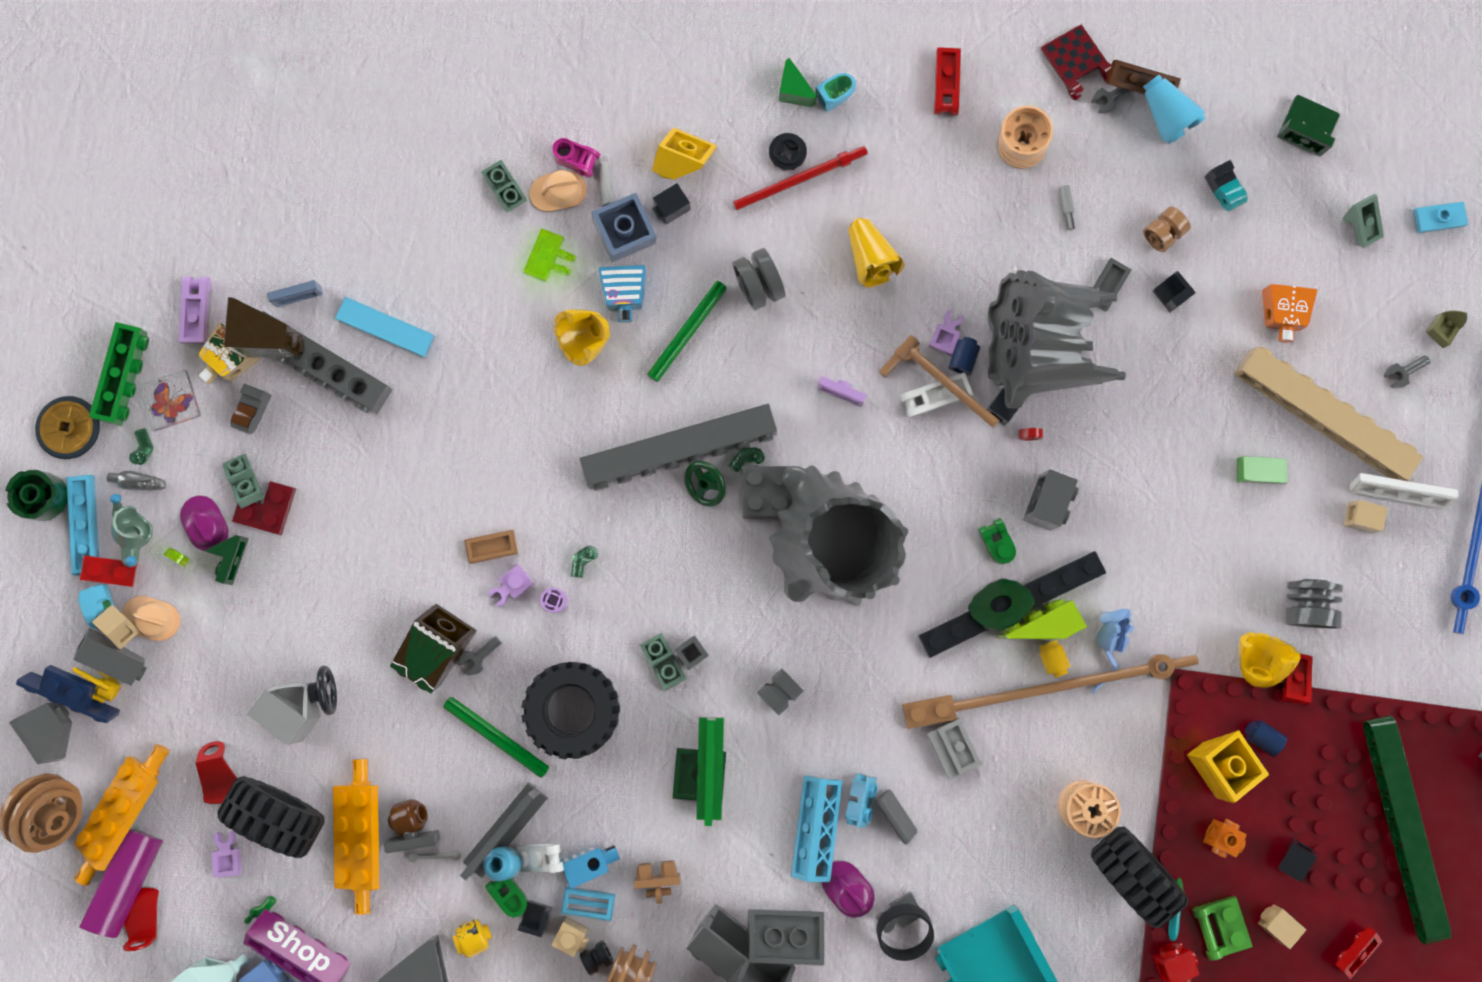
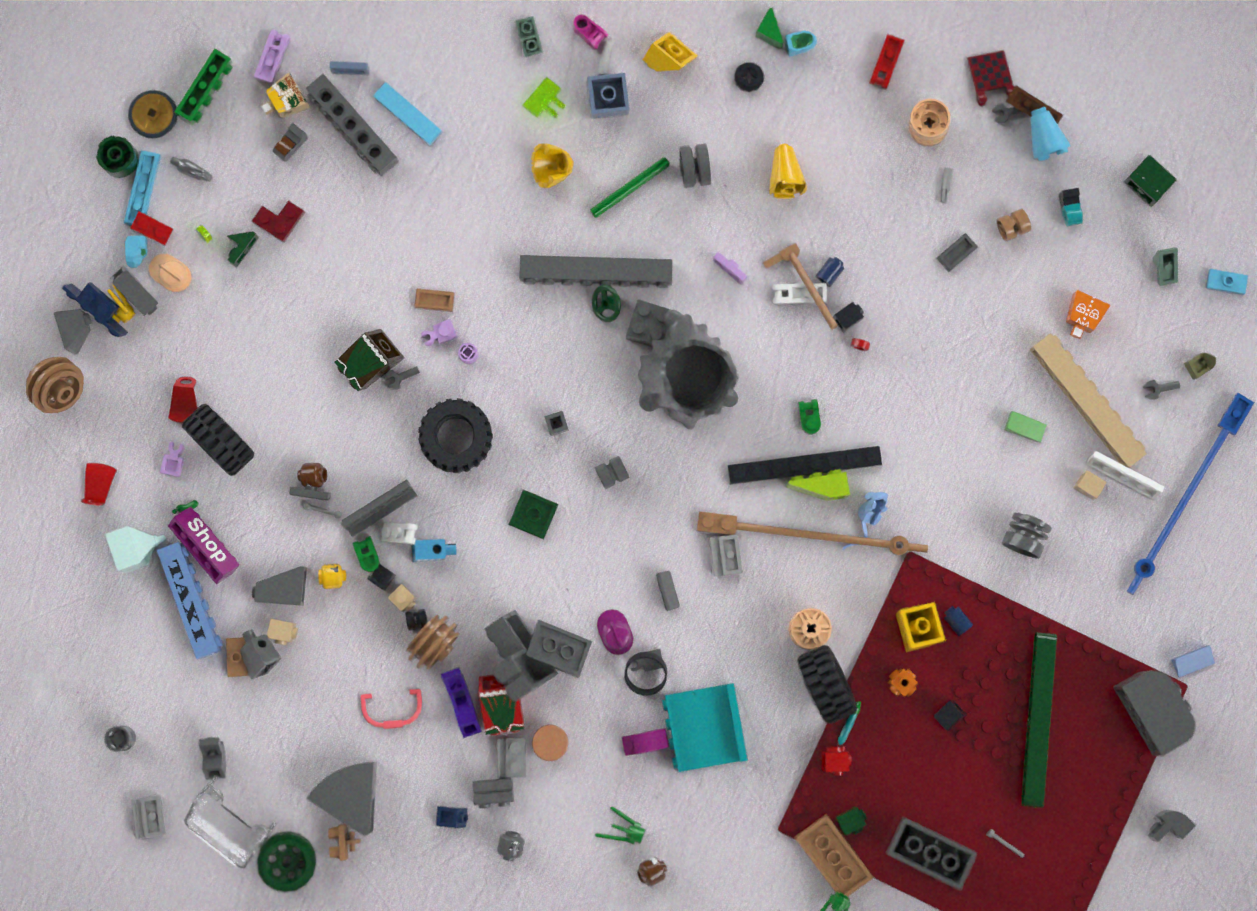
camera: 20 degrees right, 0 degrees up
(116, 626) = (145, 270): tan panel -> none
(117, 812) = (105, 404): light orange plate -> none
(121, 884) = (93, 455): magenta brick -> none
(129, 531) = (175, 203): sand green piece -> none
(144, 449) = (205, 146): clear green arm -> none
(169, 400) = (232, 117): clear tile -> none
(203, 522) = (230, 215): magenta piece -> none
(243, 480) = (269, 193): sand green slope -> none
(258, 334) = (317, 90): dark brown slope -> none
(292, 708) = (255, 368): light grey piece -> none
(356, 837) = (271, 477): light orange plate -> none
(496, 737) = (394, 439): green axle -> none
(502, 863) = (370, 528): medium azure head -> none
(557, 191) = (567, 52): light nougat piece -> none
(582, 558) = (498, 329): clear green arm -> none
(589, 893) = (437, 587): medium azure tile -> none
(623, 289) = (593, 141): dark azure torso -> none
(646, 880) = (470, 575): medium nougat hips -> none
(663, 662) = (533, 424): sand green slope -> none
(670, 204) = (648, 89): black brick -> none
(710, 769) = (543, 510): green fence -> none
(745, 455) = (645, 293): clear green arm -> none
(812, 829) = (603, 578): medium azure fence -> none
(843, 159) = (789, 96): red bar -> none
(861, 811) = (651, 564): medium azure hinge -> none
(945, 335) = (821, 252): lavender plate -> none
(1021, 604) = (809, 463): dark green piece -> none
(1039, 336) = (890, 273): dark grey piece -> none
(1051, 500) = (858, 394): dark grey brick -> none
(1054, 659) = (822, 514): yellow brick -> none
(1173, 291) = (1004, 273): black panel -> none
(1229, 924) = (885, 747): bright green plate -> none
(1266, 659) = (976, 563): yellow hair -> none
(1281, 926) = (921, 757): tan brick -> none
(1298, 685) = (997, 586): red plate -> none
(1363, 947) = (973, 796): red plate -> none

